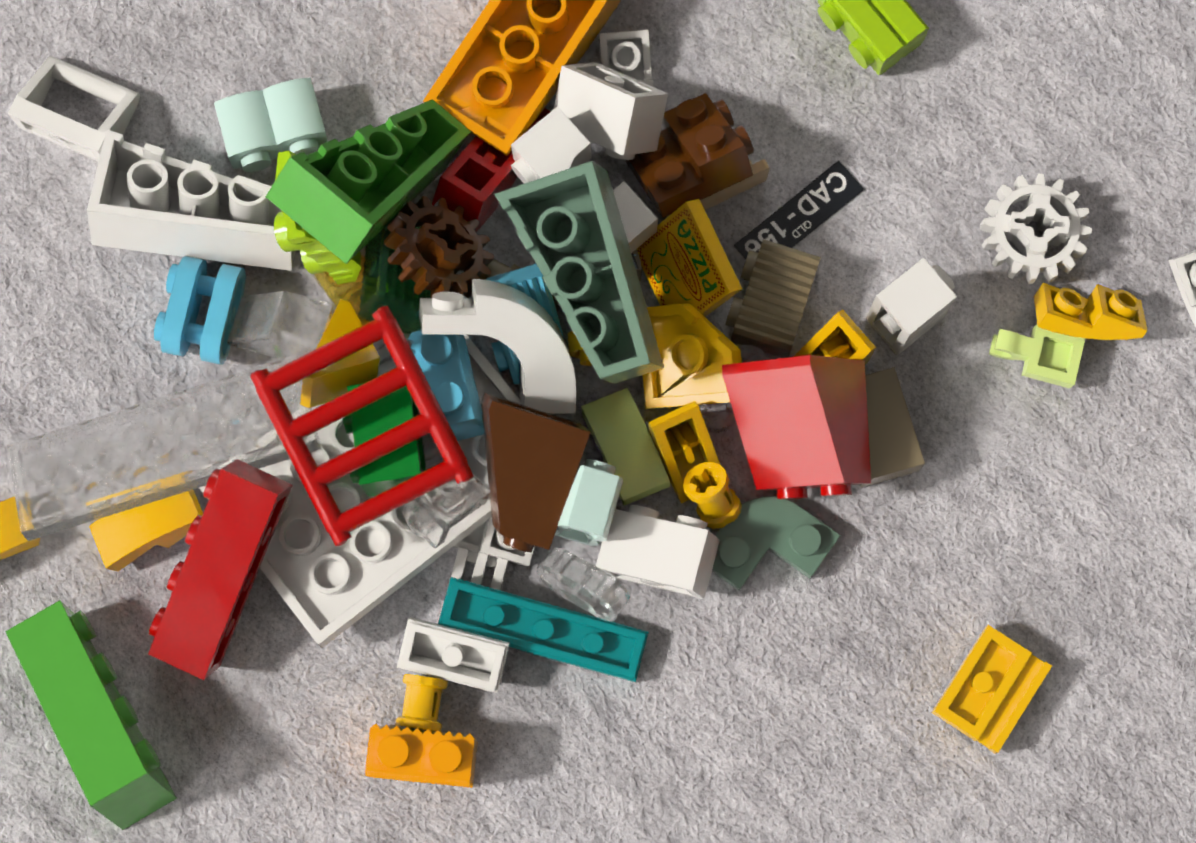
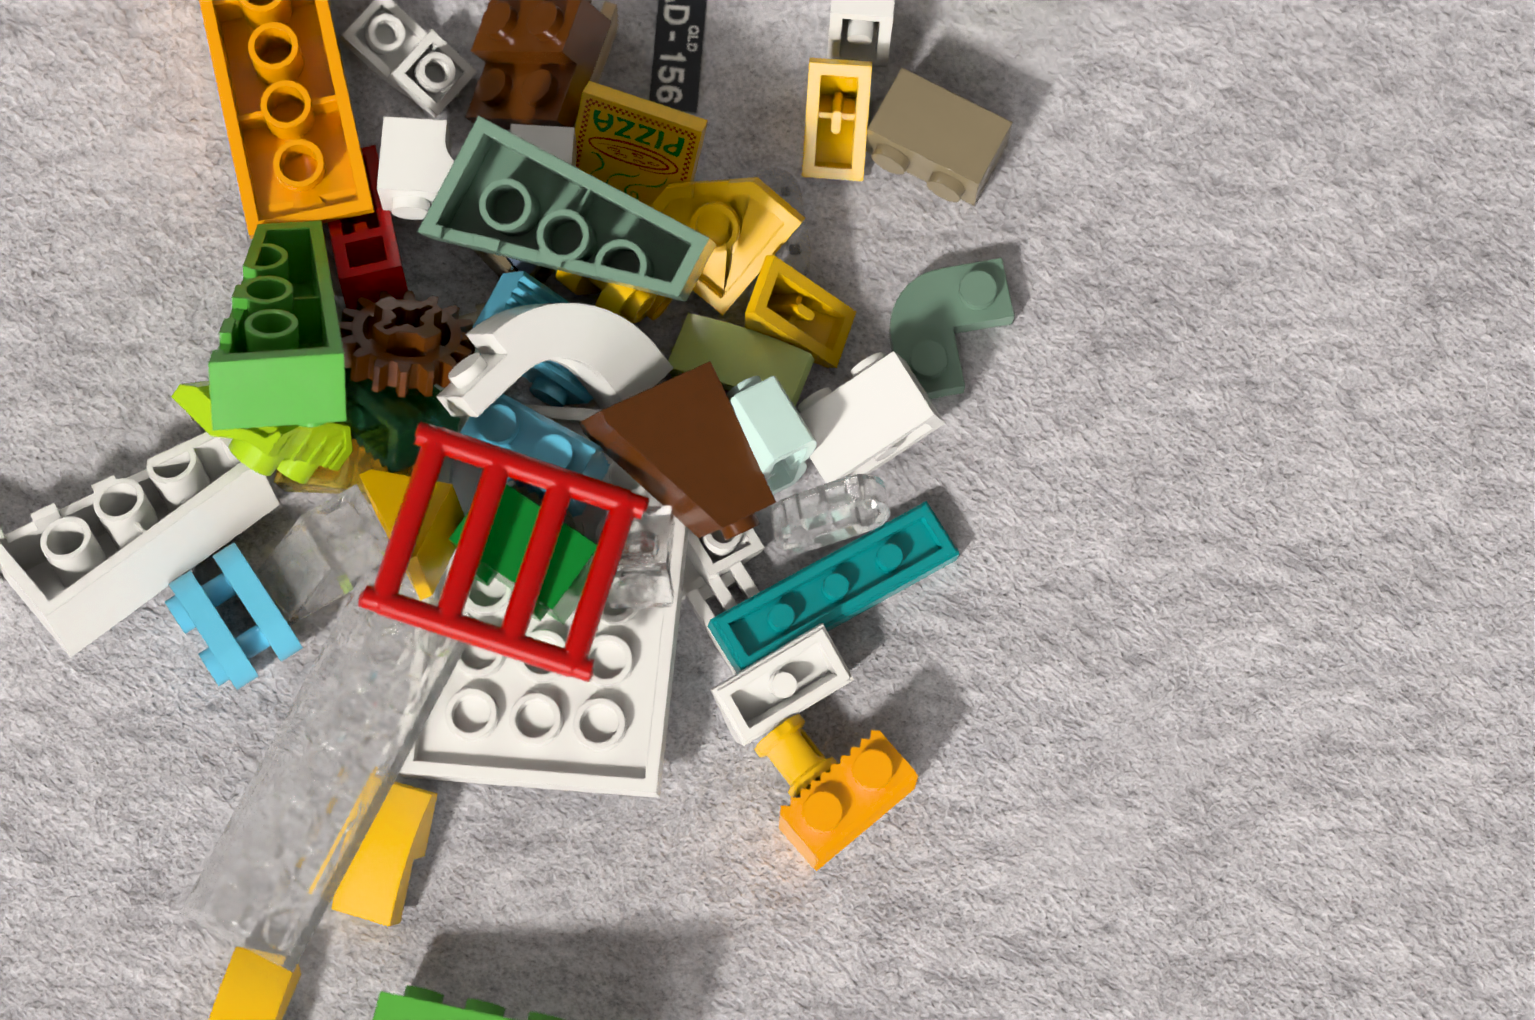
camera: 50 degrees left, 5 degrees down
(219, 568) = (499, 815): red brick -> none
(270, 122) = (123, 394): light aqua brick -> none
(611, 108) = (429, 78): white brick -> none
(709, 488) = (852, 324): yellow bush -> none
(774, 298) = (744, 118): dark tan brick -> none
(802, 423) = (877, 186): slope -> none
(991, 689) = (1261, 260): yellow plate -> none

